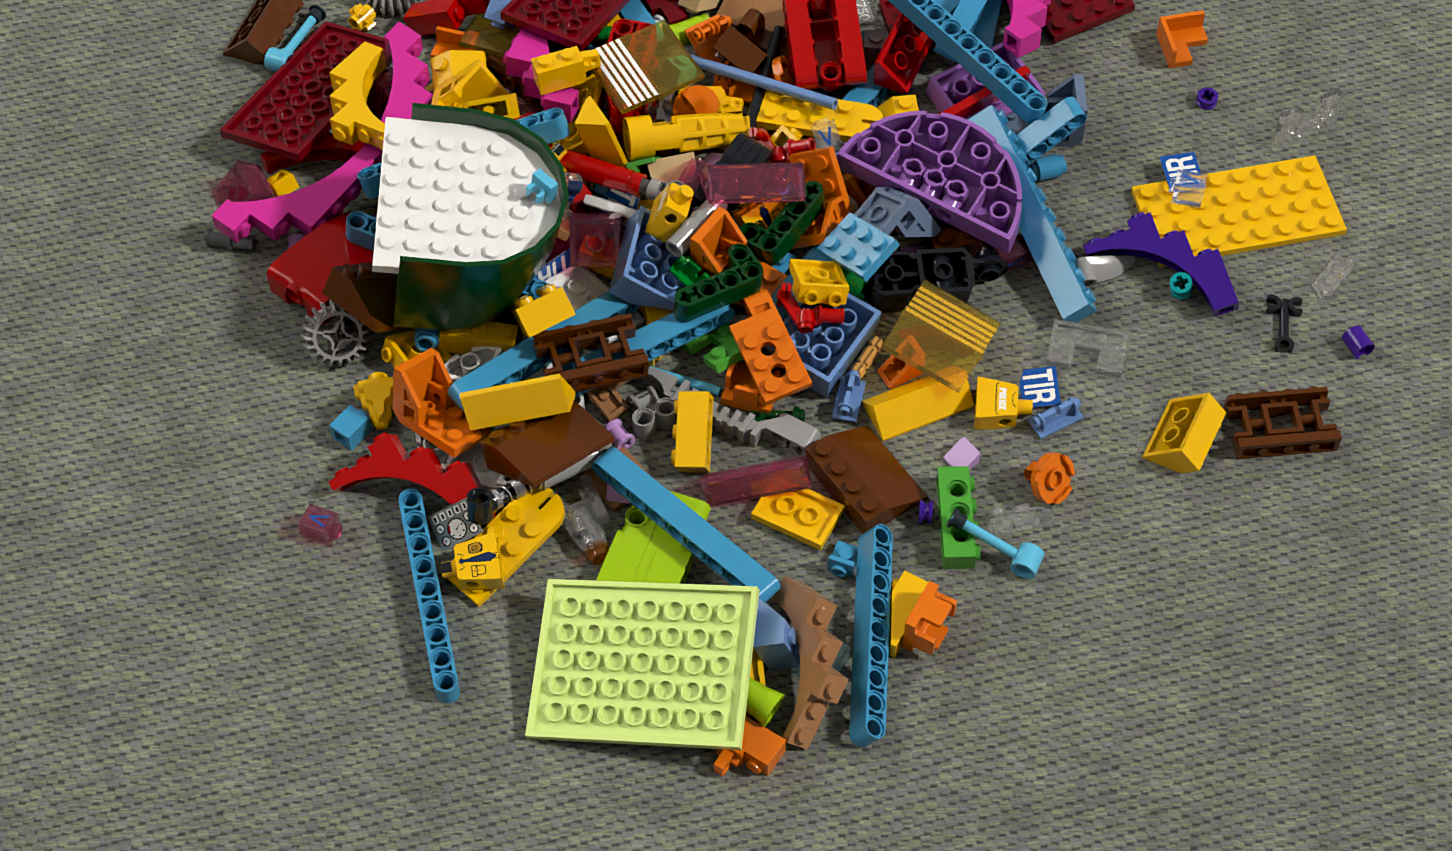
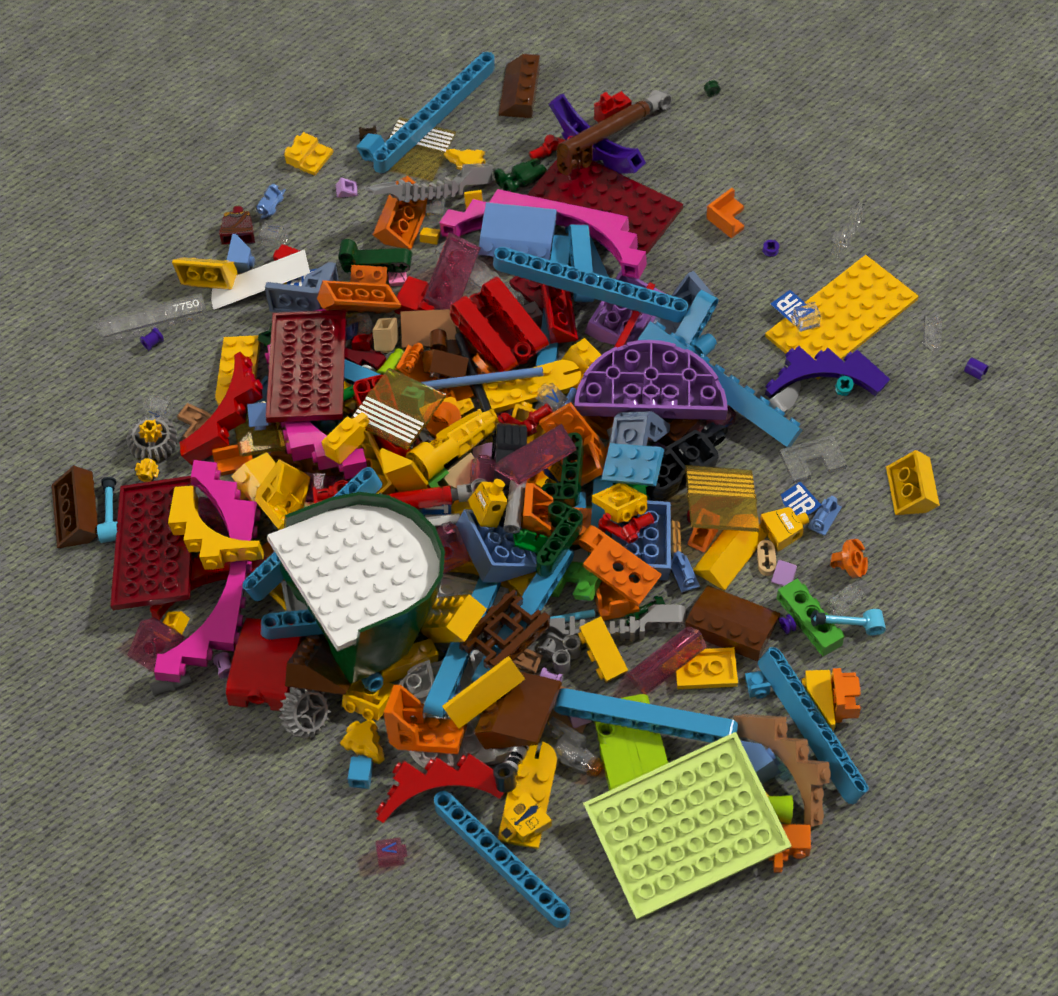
camera: 30 degrees left, 0 degrees up
(453, 525) = (486, 801): sticker -> none
(500, 105) = (311, 493): yellow hinge -> none
(543, 186) = (413, 529): medium azure tile -> none
(950, 426) = (771, 557): none -> tan beam
(1284, 308) = (916, 368): black bar -> none
(1284, 440) = (975, 458): reddish brown fence -> none

